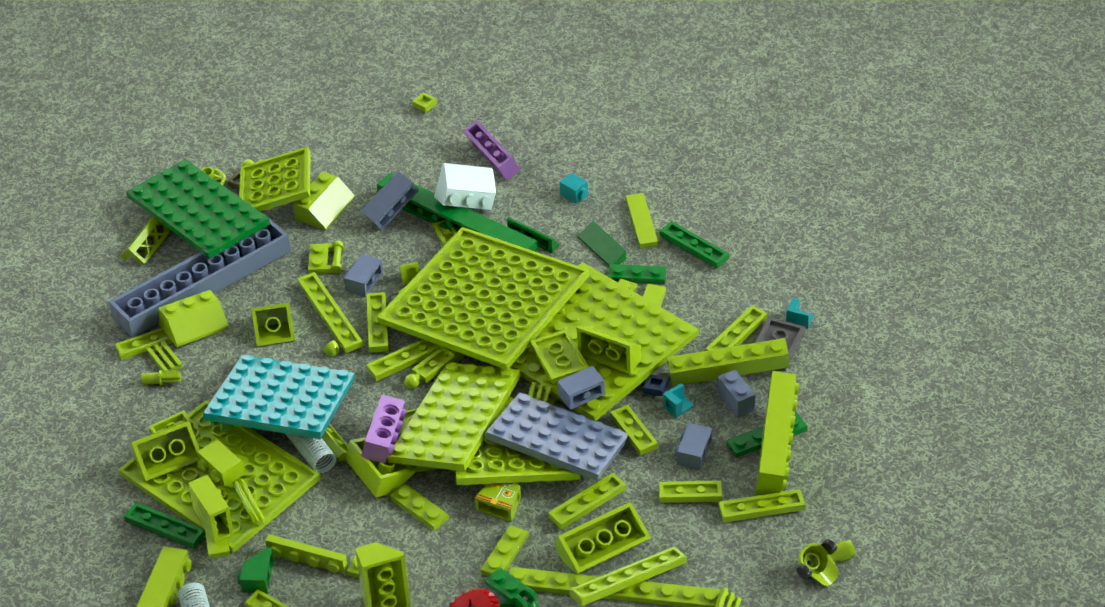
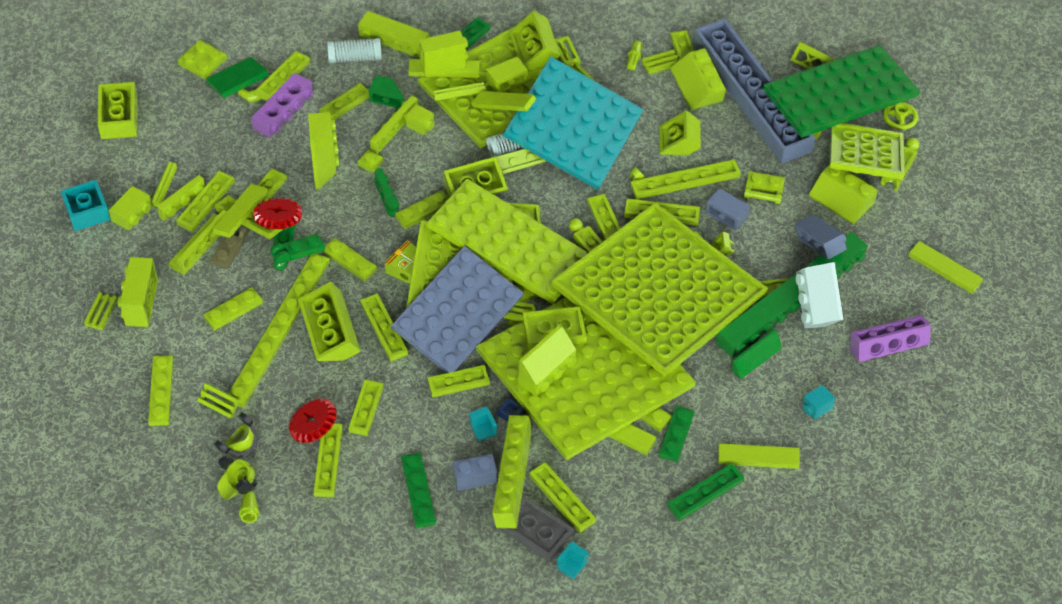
camera: 100 degrees right, 10 degrees up
(270, 447) = (503, 101): none -> lime tile
(295, 529) = (420, 119): none -> lime brick
(384, 429) = (499, 173): medium lavender brick -> none
(392, 133) = (946, 267): none -> lime tile
(411, 536) = (386, 193): none -> green hinge
(424, 102) = (989, 299): lime plate -> none
(581, 387) = (505, 333): sand blue brick -> none
(602, 244) = (726, 413): green slope -> none
(627, 576) = (280, 334): lime tile -> none
(693, 446) = (419, 422): sand blue brick -> none
(728, 538) = (308, 431): none -> red gear
(769, 572) = (242, 440): none -> cap
(777, 434) = (394, 478): lime brick -> none

